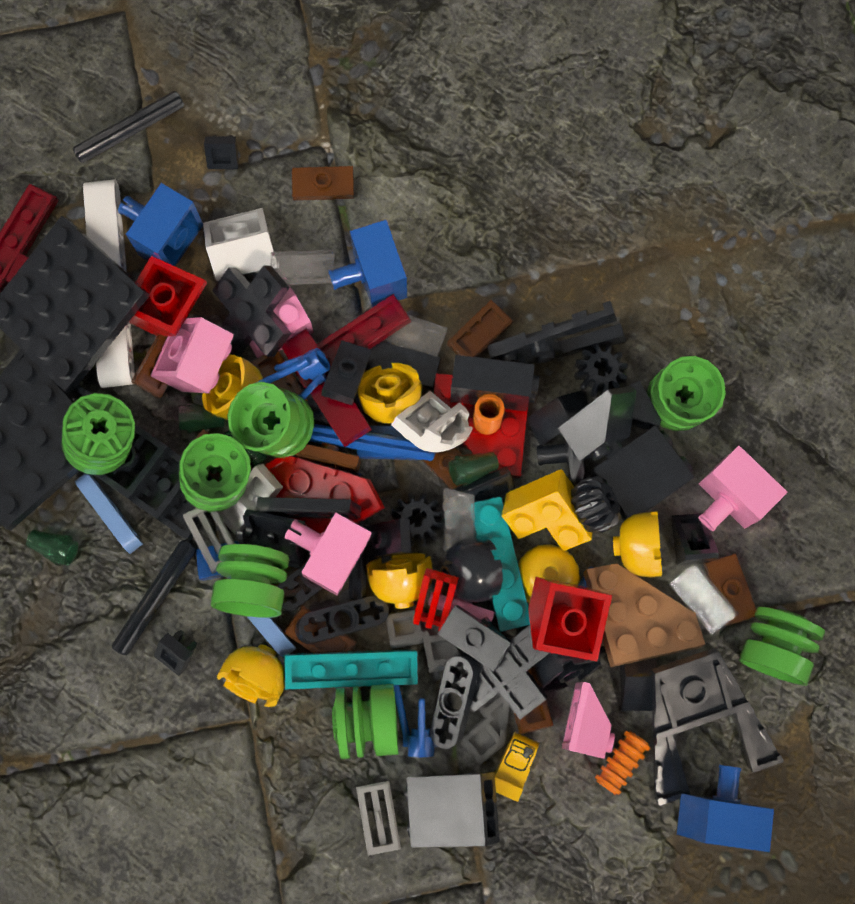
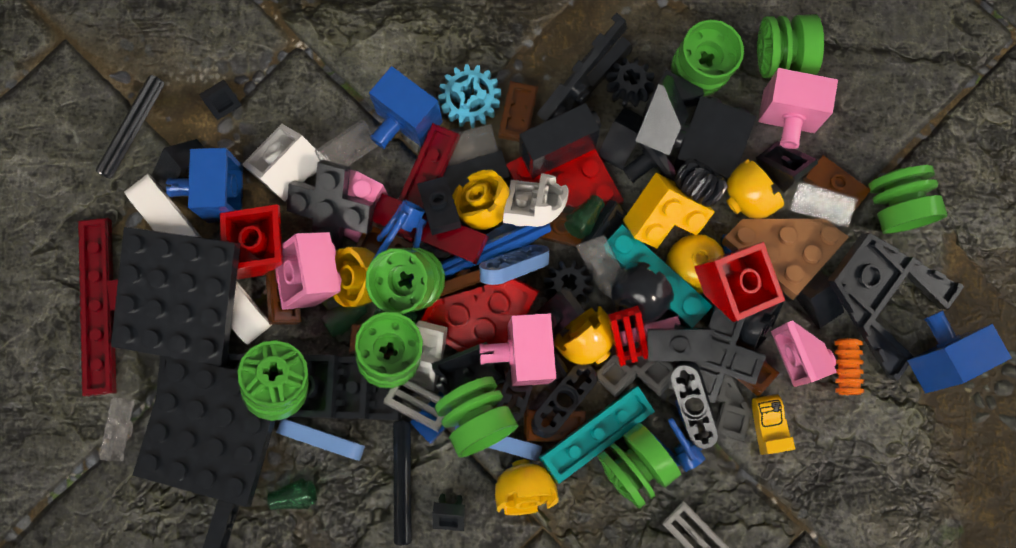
camera: 30 degrees left, 0 degrees up
(144, 182) = (174, 162): none -> black slope
(309, 507) = (481, 329): black tile -> none
(323, 183) = (317, 74): reddish brown plate -> none
(378, 469) = (514, 264): none -> medium blue beam
(452, 810) = (750, 490): brick -> none
(454, 279) = (460, 87): none -> medium azure gear
(491, 404) = (572, 157): orange piece -> none
(770, 432) = (790, 45): none -> bright green wheel

